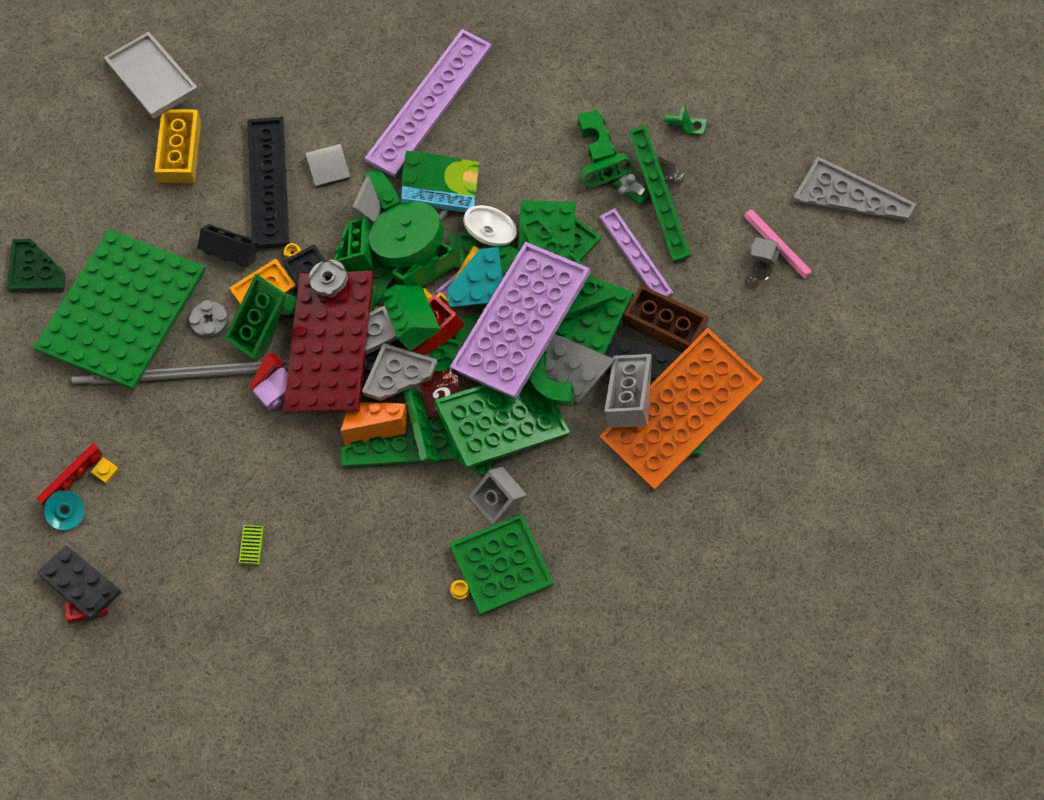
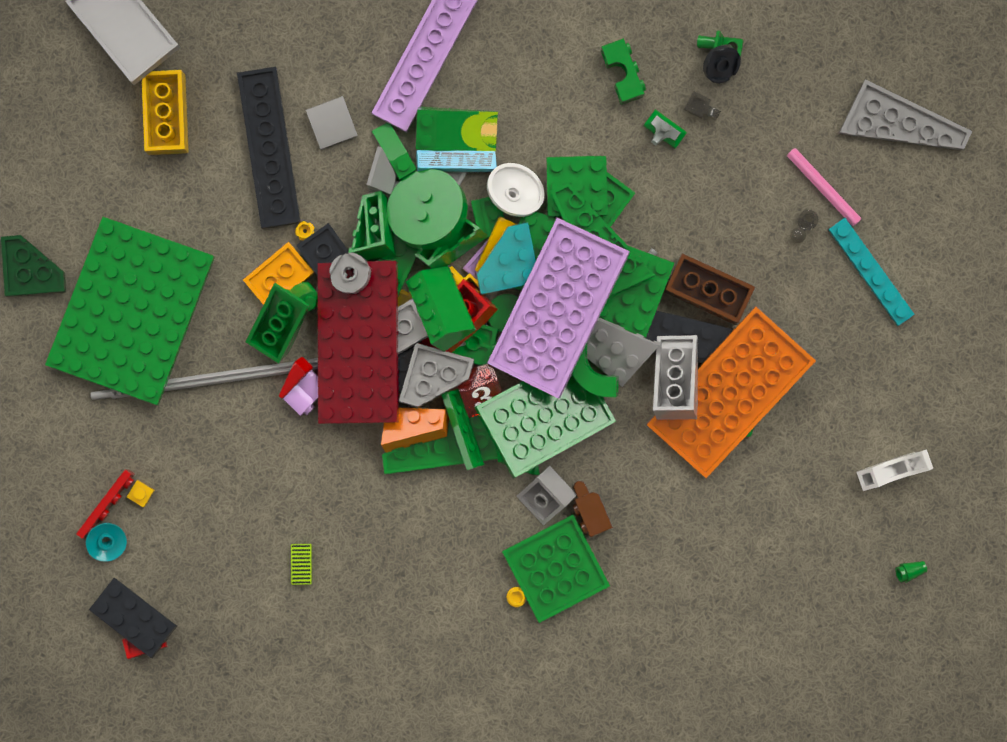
camera: 10 degrees left, 20 degrees up
(205, 310) = (236, 314): light grey plate -> none
(227, 245) = (235, 230): black brick -> none
(540, 511) = (591, 510): none -> reddish brown hinge
(614, 172) = (636, 112): green beam -> none
(634, 253) = (673, 209): lavender tile -> none
(659, 194) = (695, 137): green plate -> none
(686, 135) = (721, 63): none -> black tile
(765, 250) = (811, 199): light grey brick -> none
(821, 318) = (871, 271): none -> teal plate
(841, 492) = (894, 469): none -> white arch
(854, 589) = (908, 571): none -> green cone

